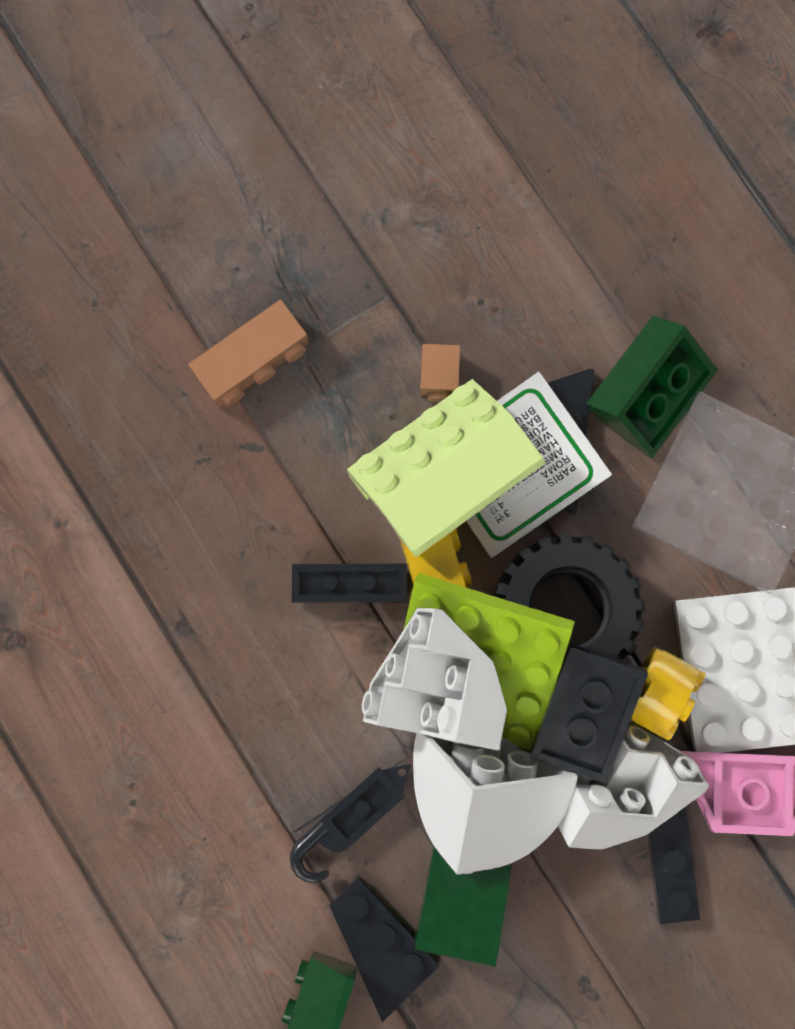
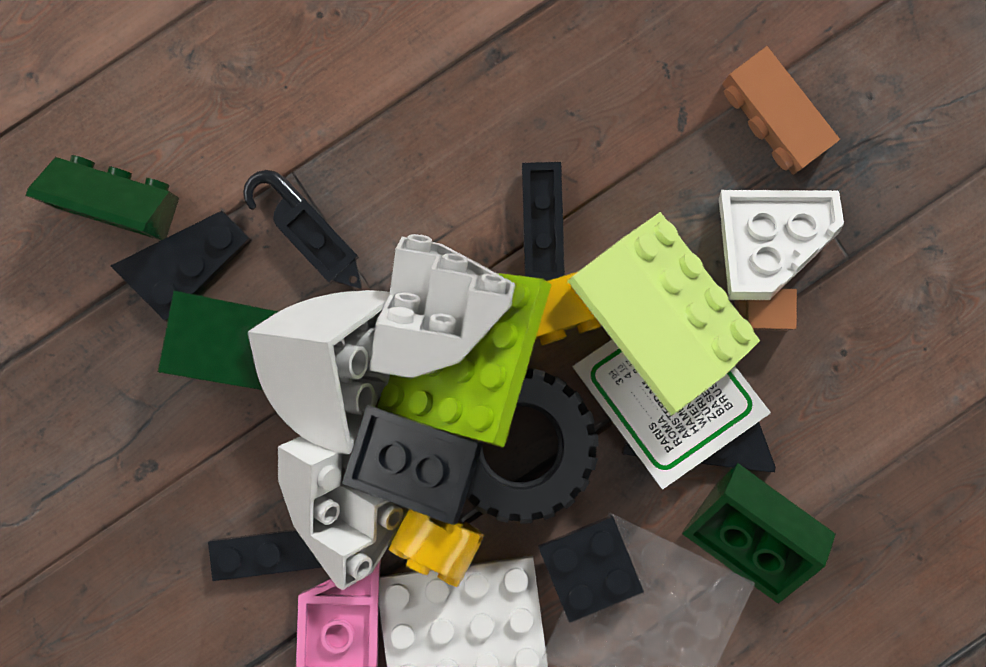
camera: 85 degrees right, 5 degrees up
(370, 363) = (774, 236): none -> white plate
(686, 545) = (590, 568): none -> black plate

